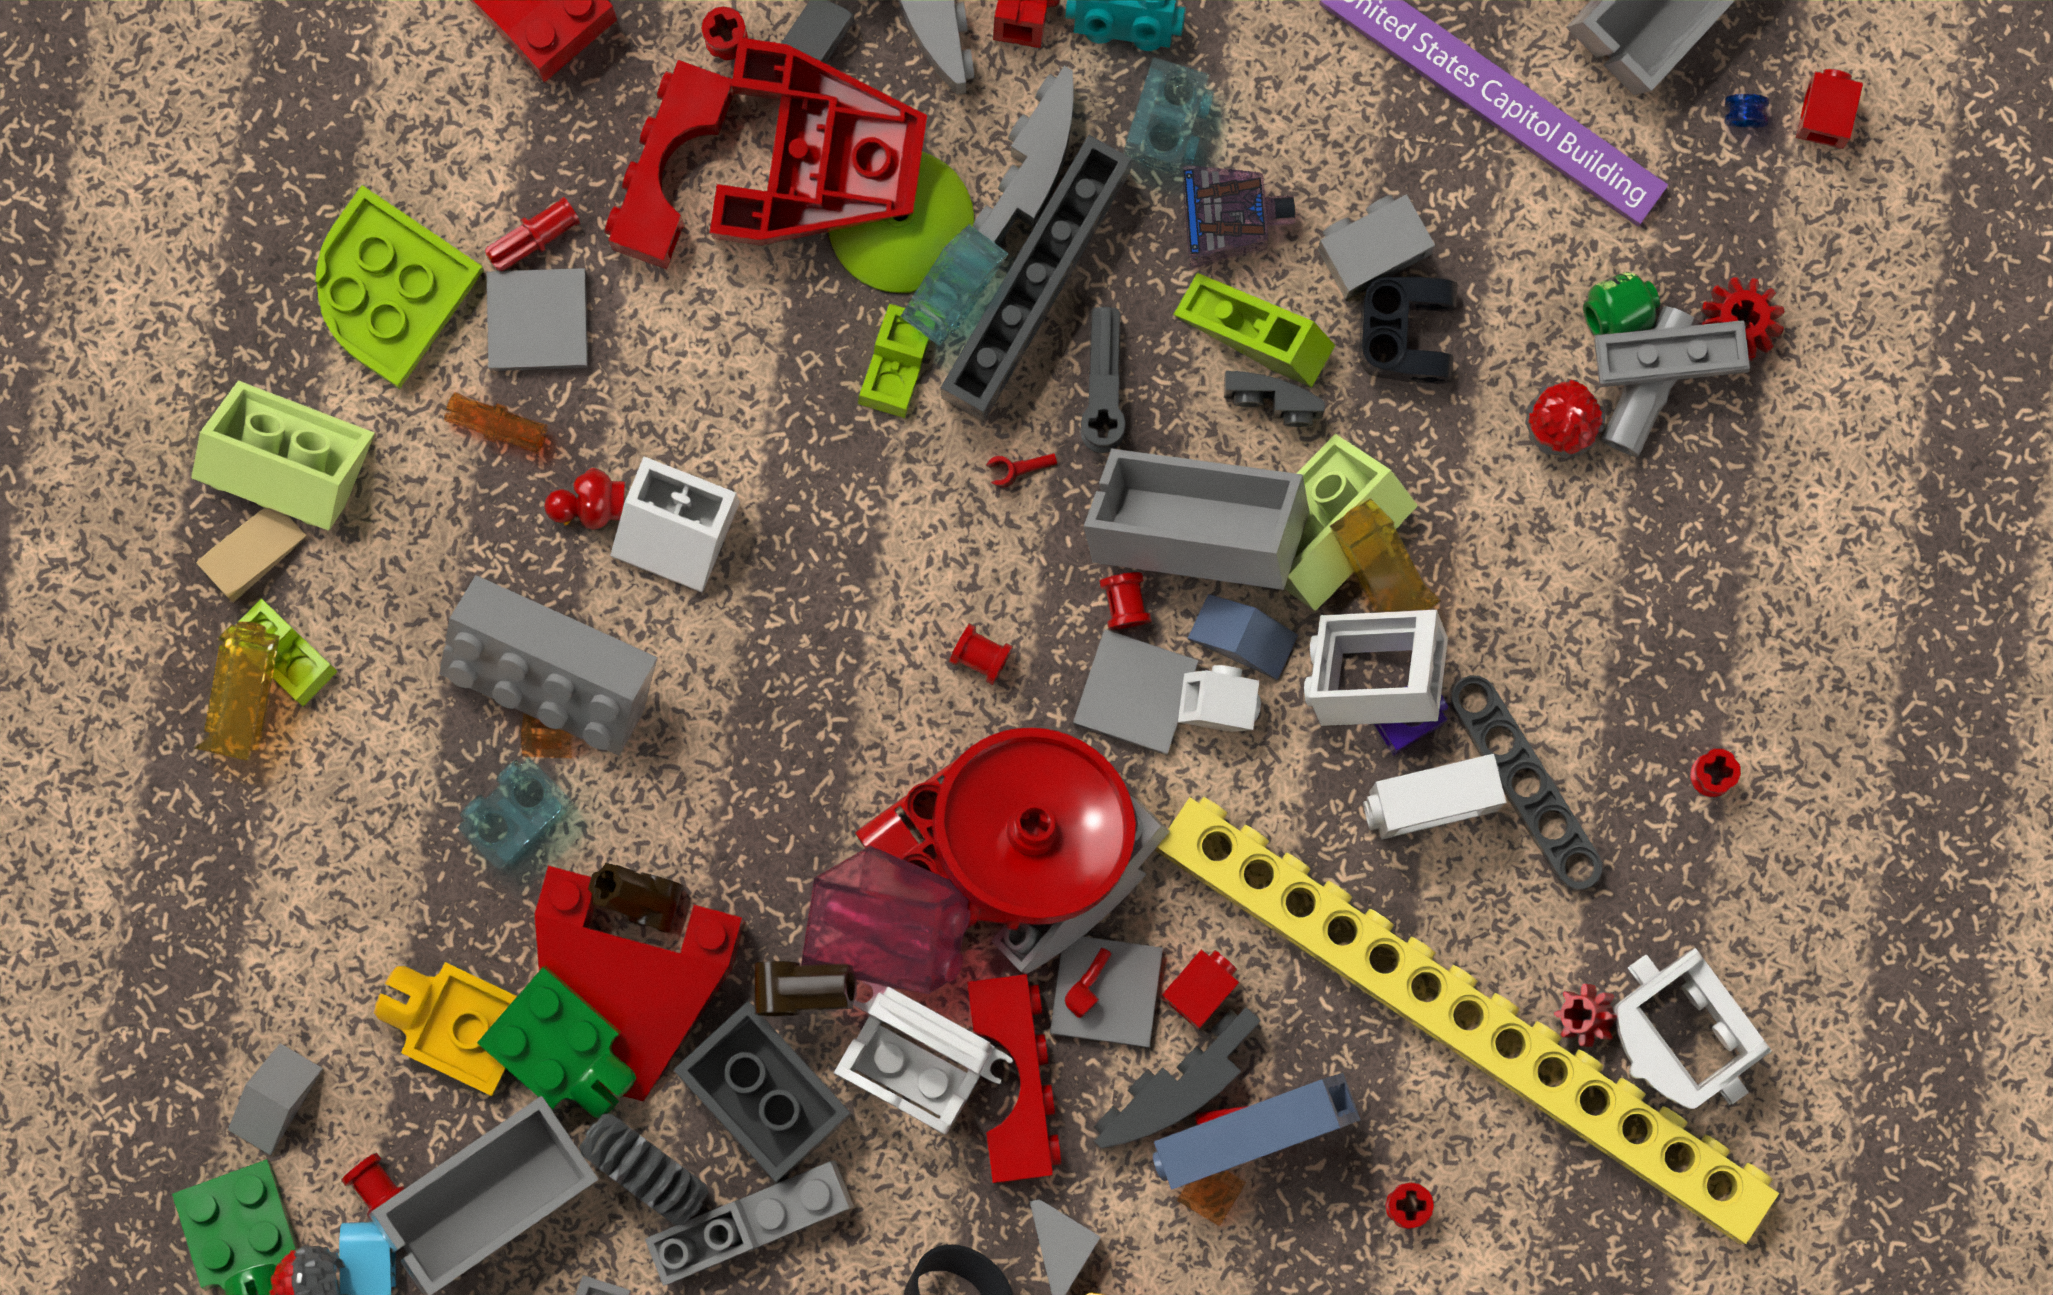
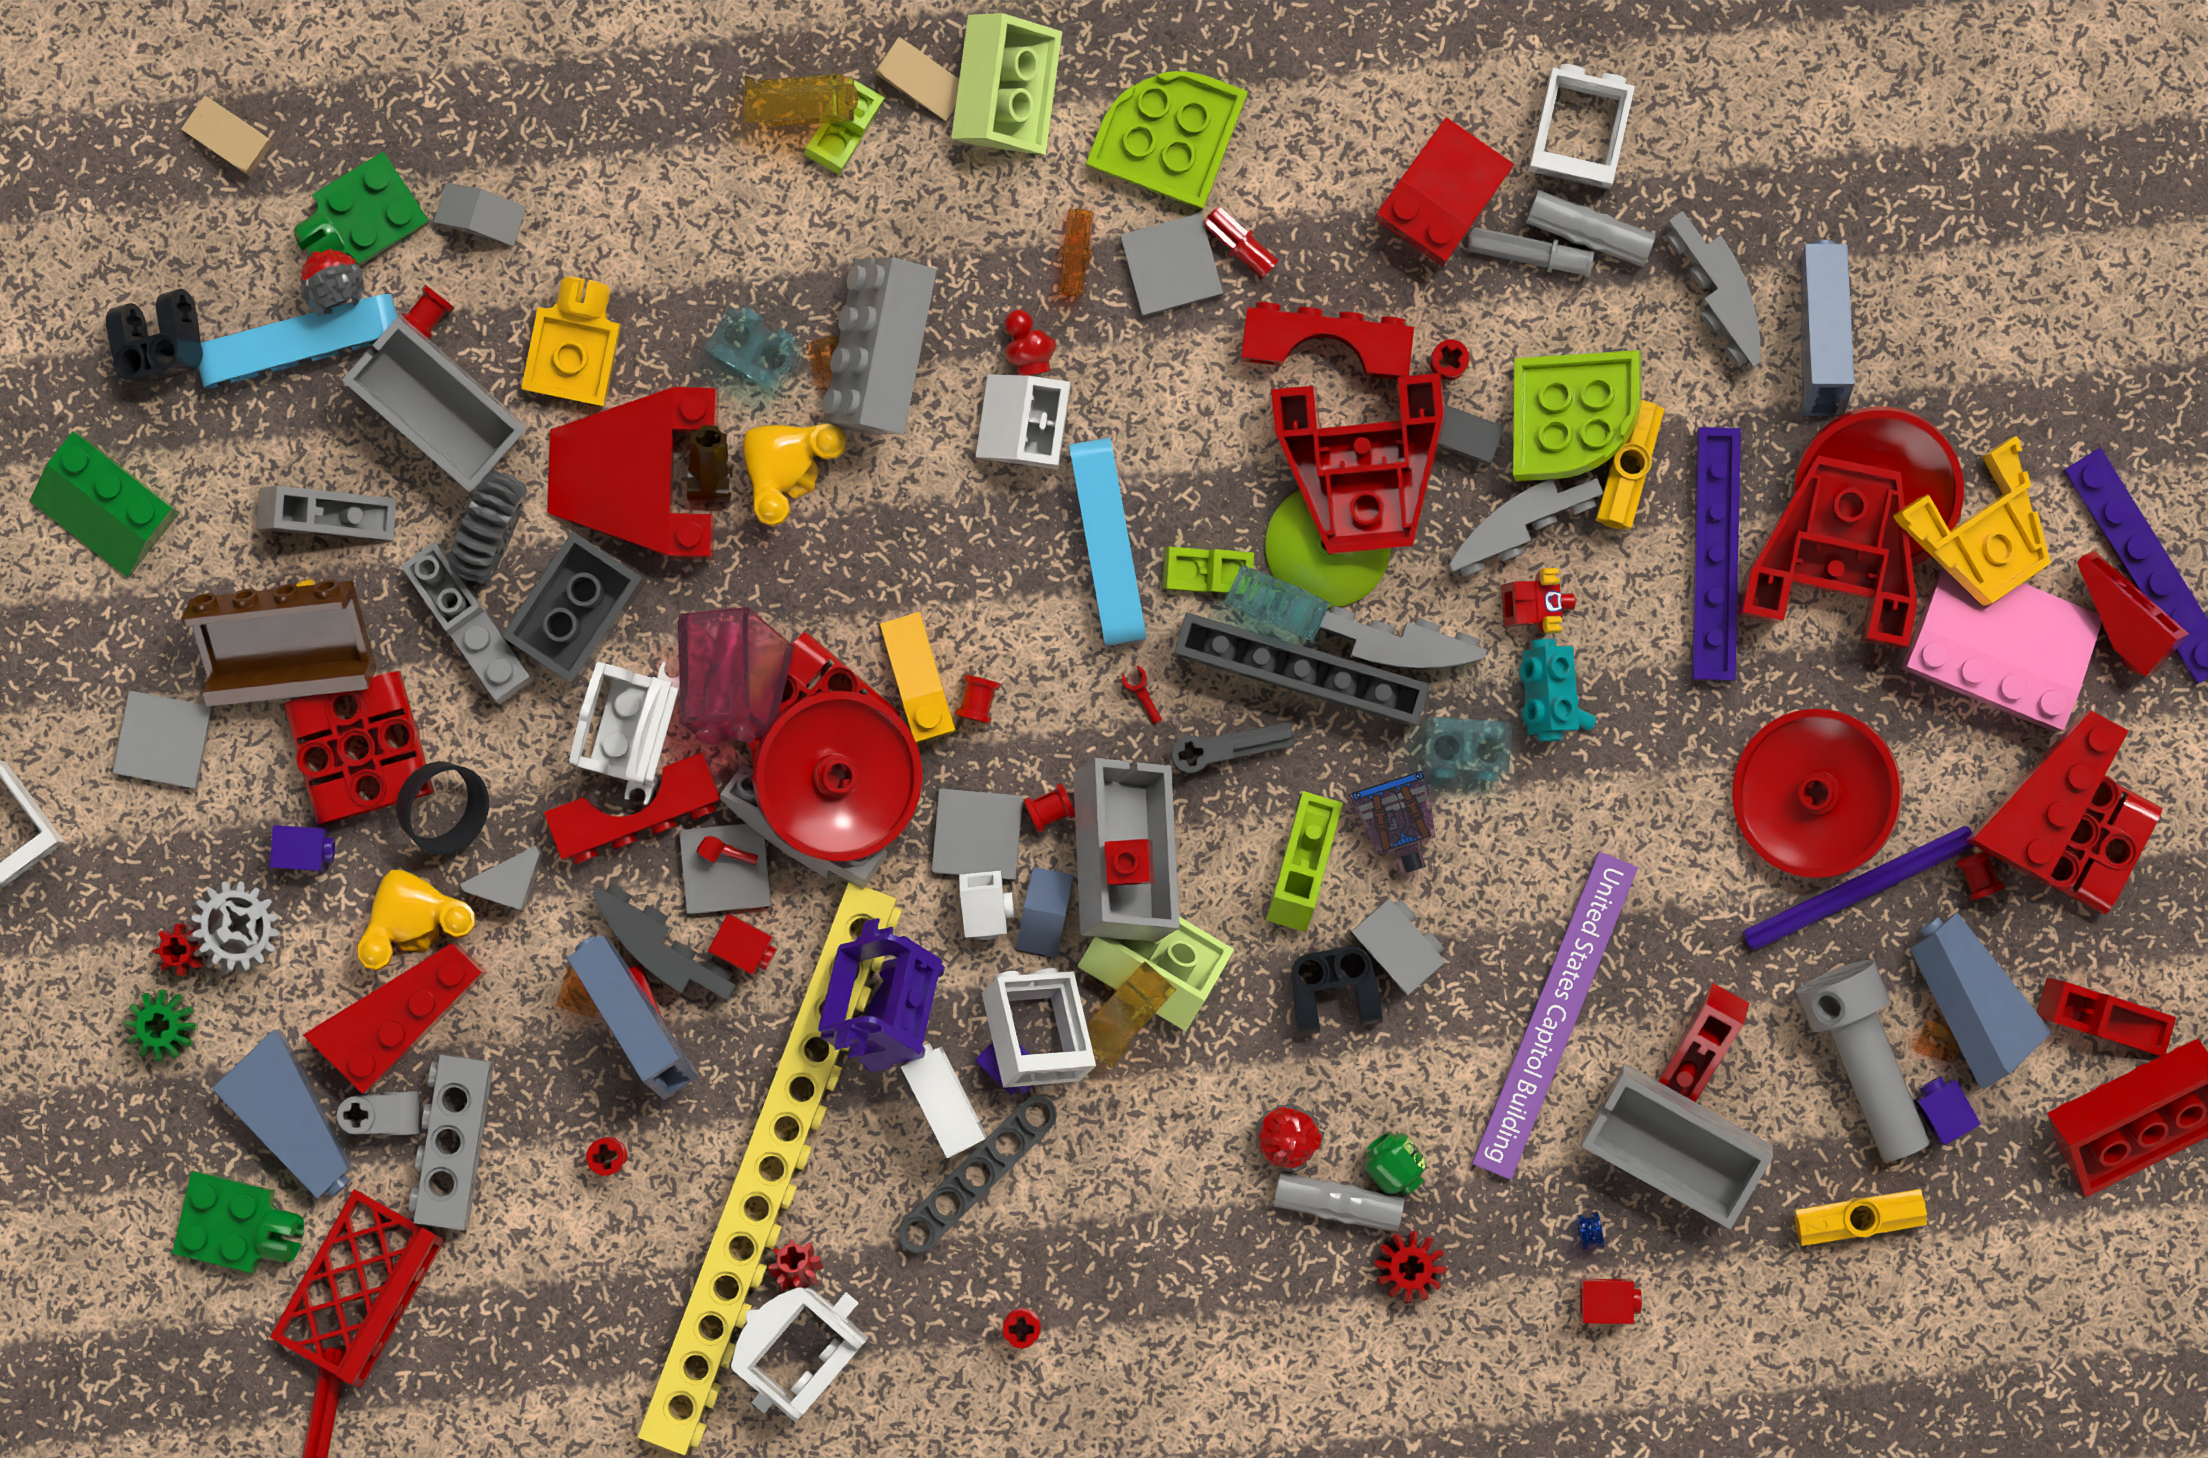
camera: 80 degrees right, 5 degrees up
(559, 1046) = (571, 434): green plate -> none
(654, 811) = (783, 463): none -> yellow head
(788, 988) = (658, 610): dark brown piece -> none
(836, 461) = (1107, 541): none -> medium azure beam
(939, 715) = (917, 678): none -> yellow slope
(1215, 509) = (1129, 862): none -> red brick
(1288, 791) = (900, 1008): none -> dark purple animal
(1289, 400) = (1248, 906): dark grey slope -> none
(1671, 353) = (1361, 1213): light grey tile -> none

